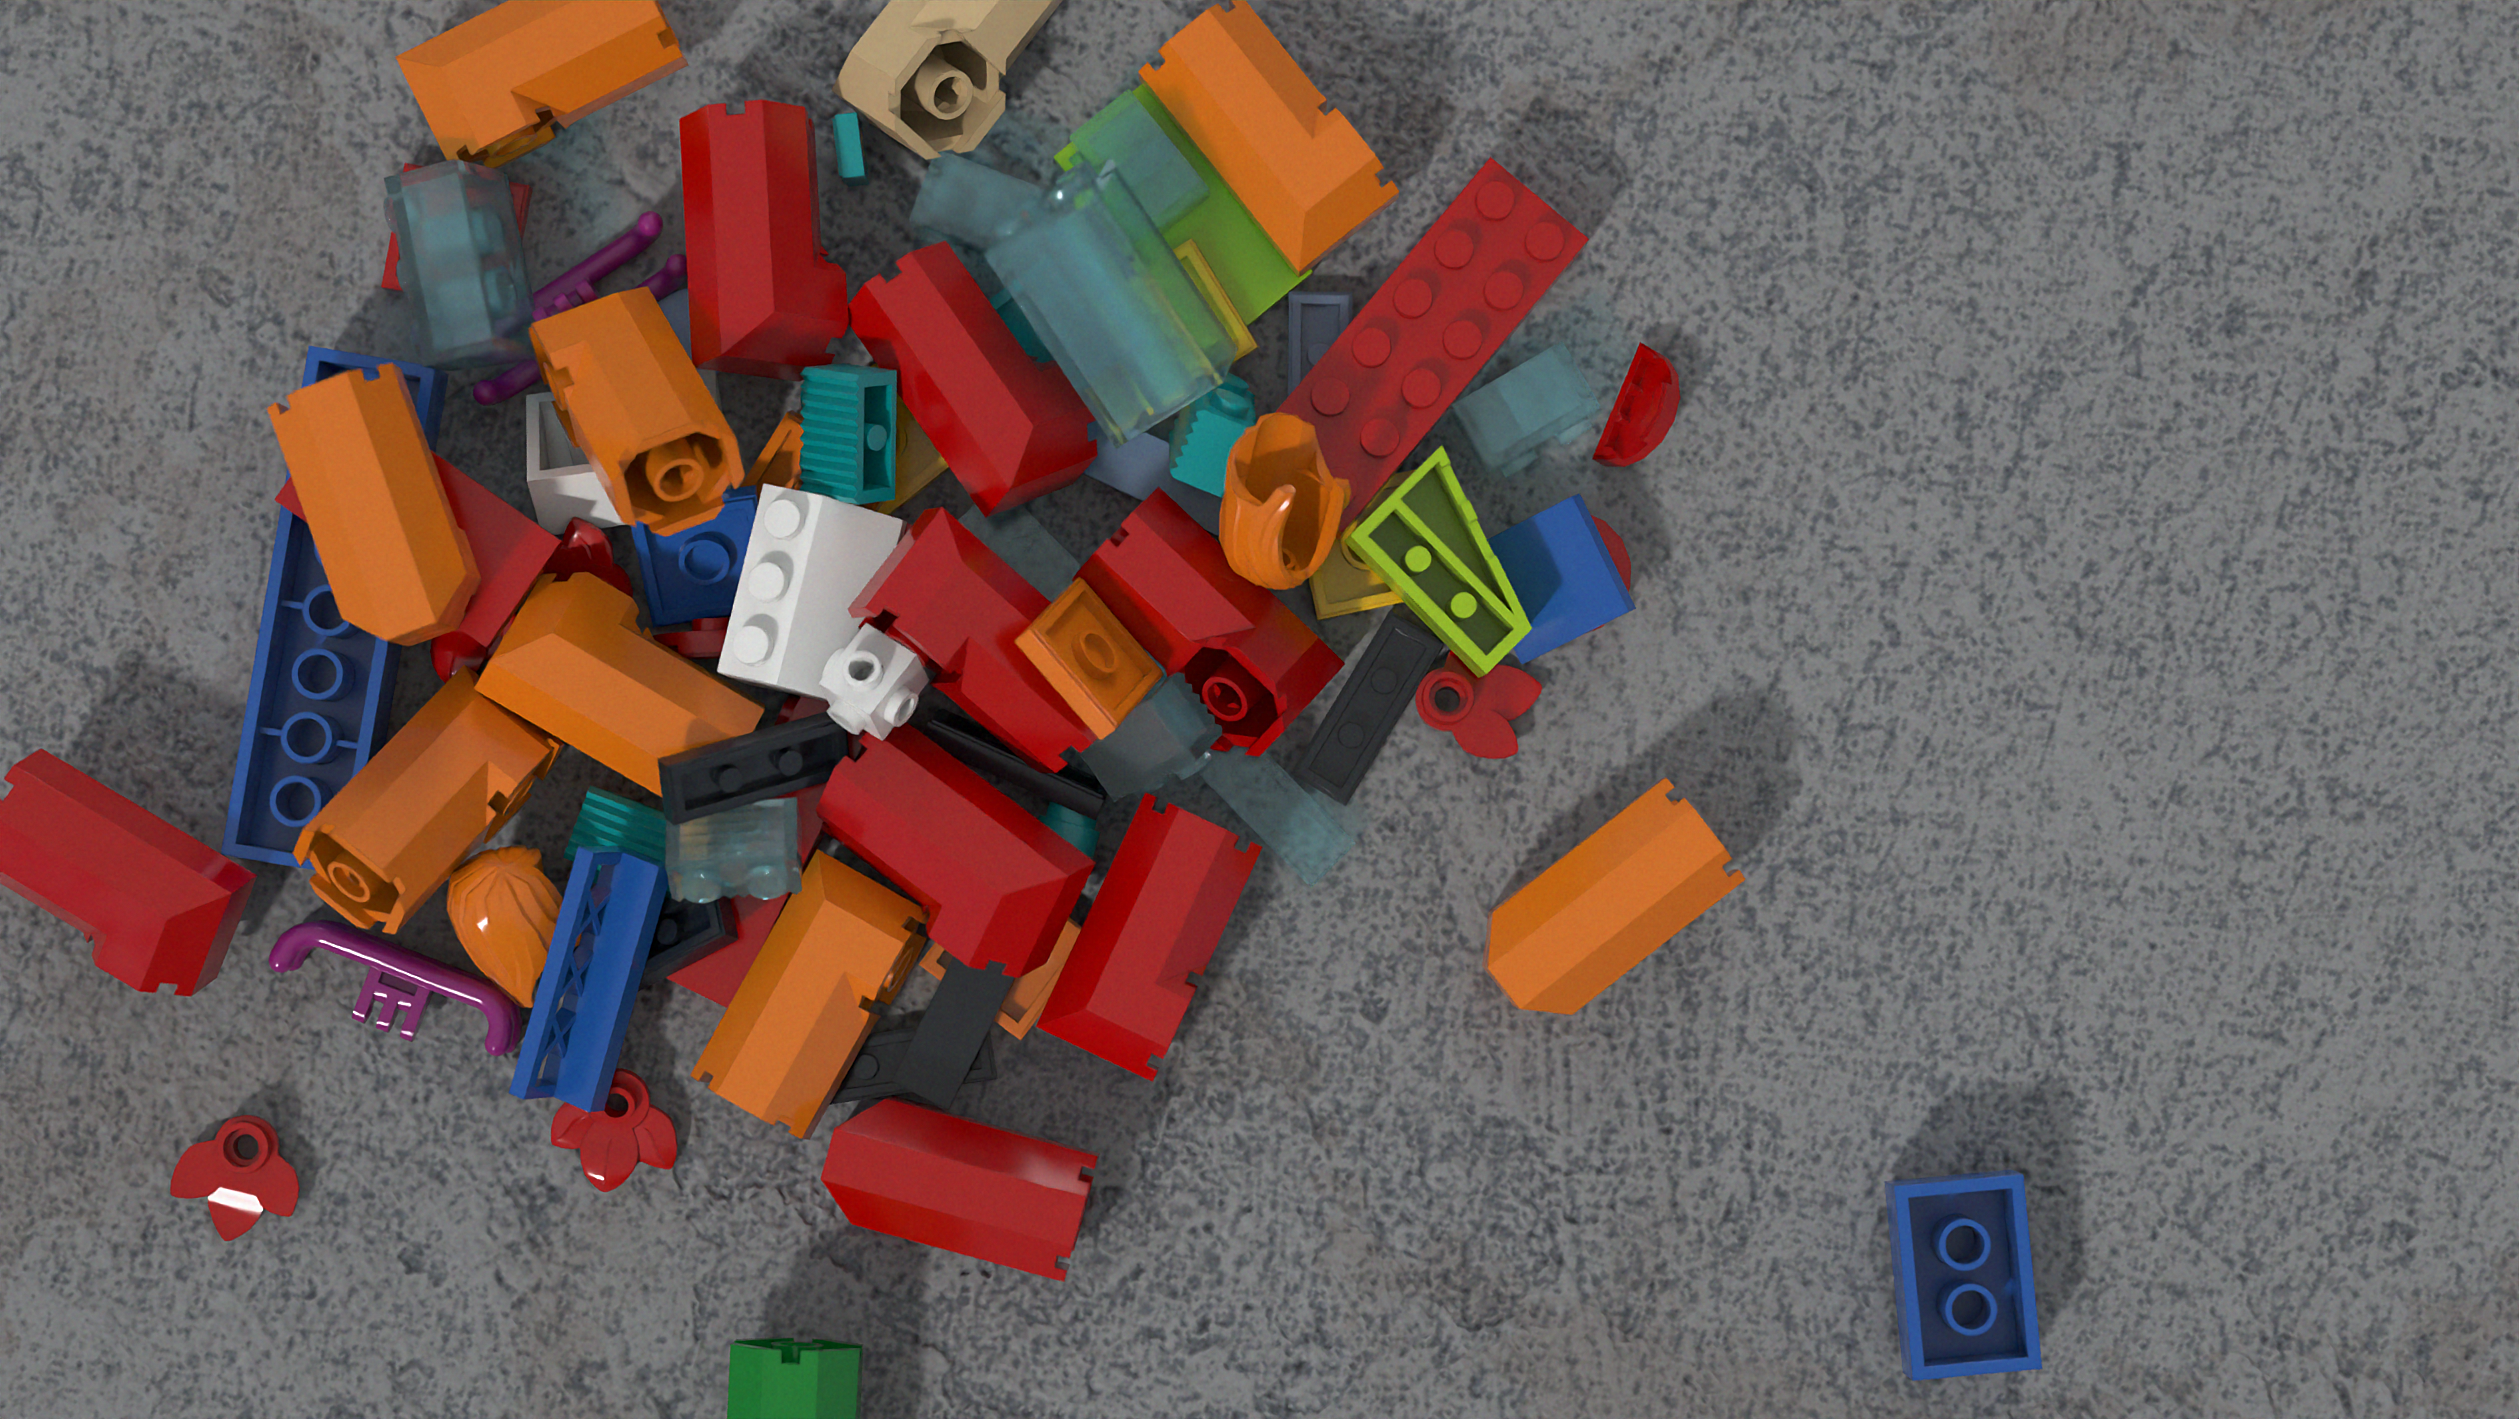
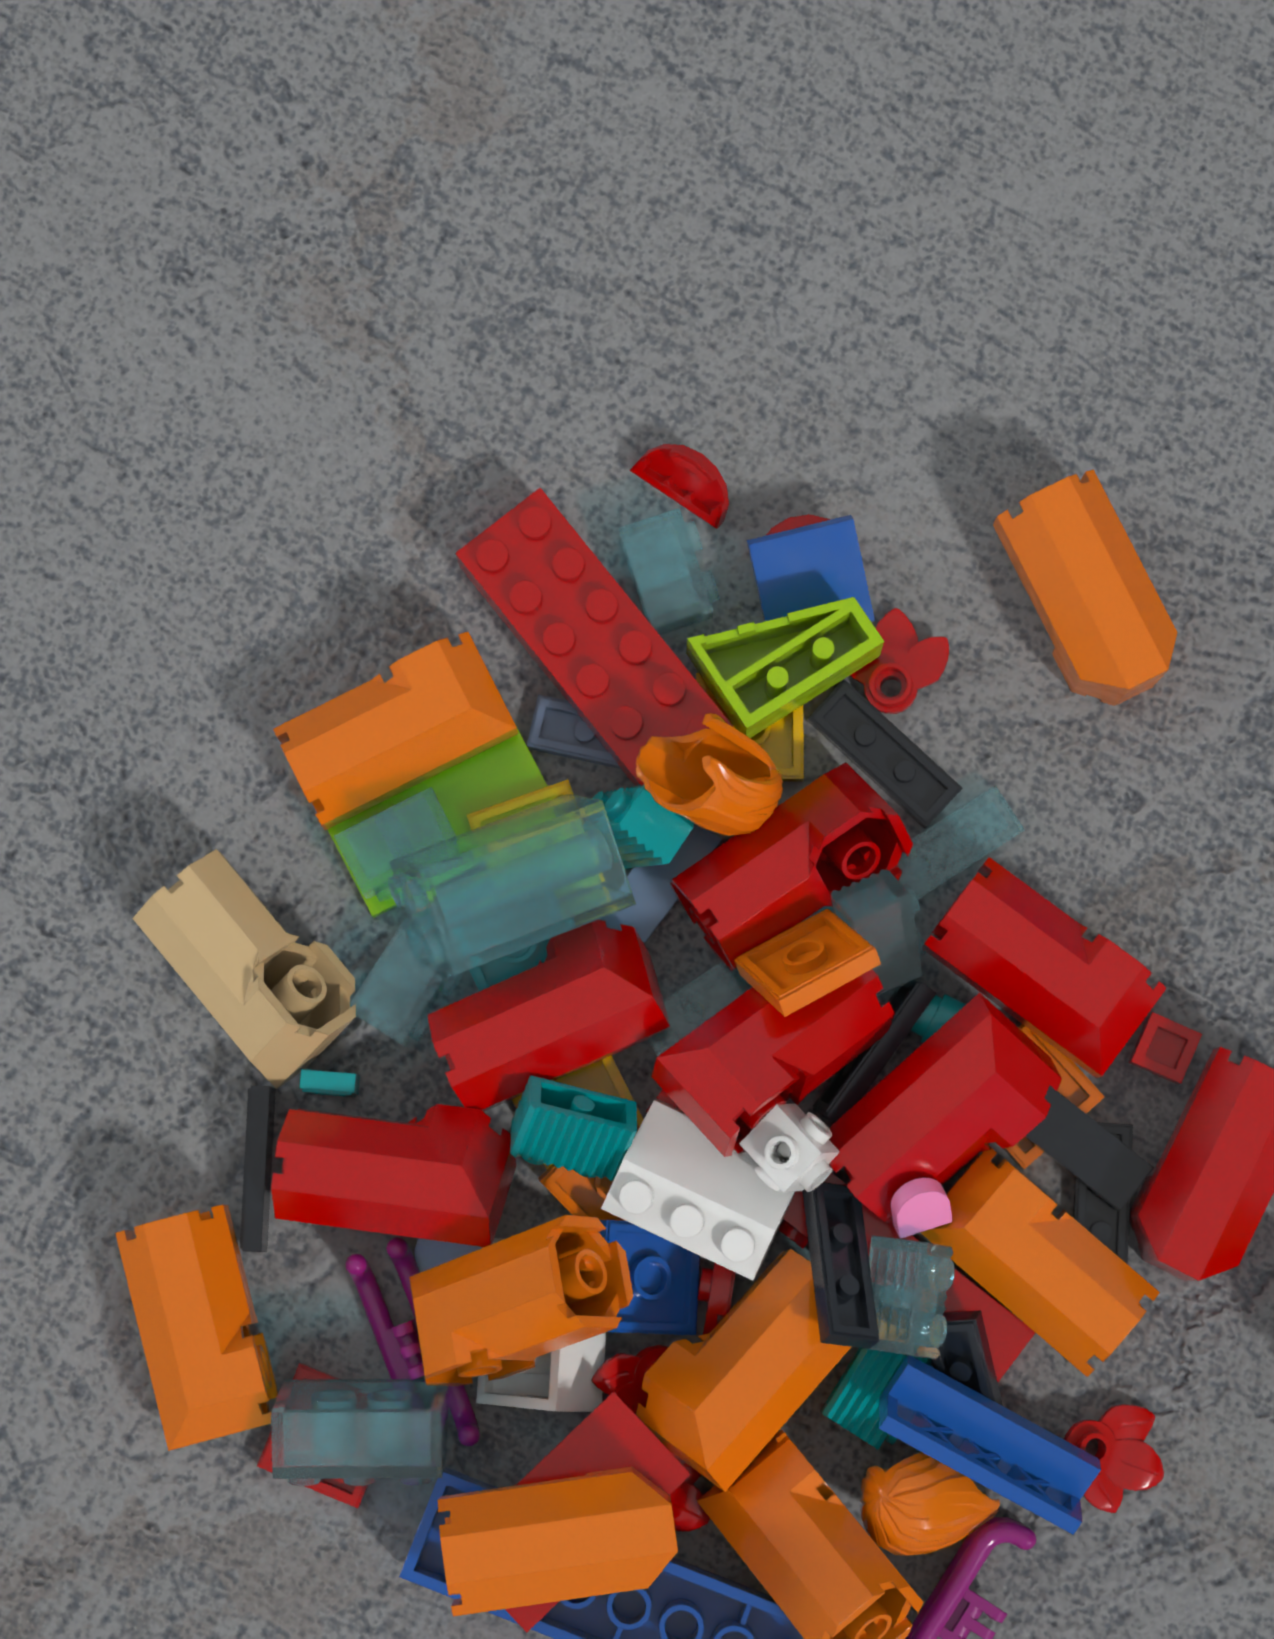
camera: 80 degrees left, 5 degrees down
(733, 88) = (257, 1169): none -> black tile
(838, 844) = (920, 1207): none -> bright pink tile
(1090, 1099) = (1165, 1048): none -> red plate

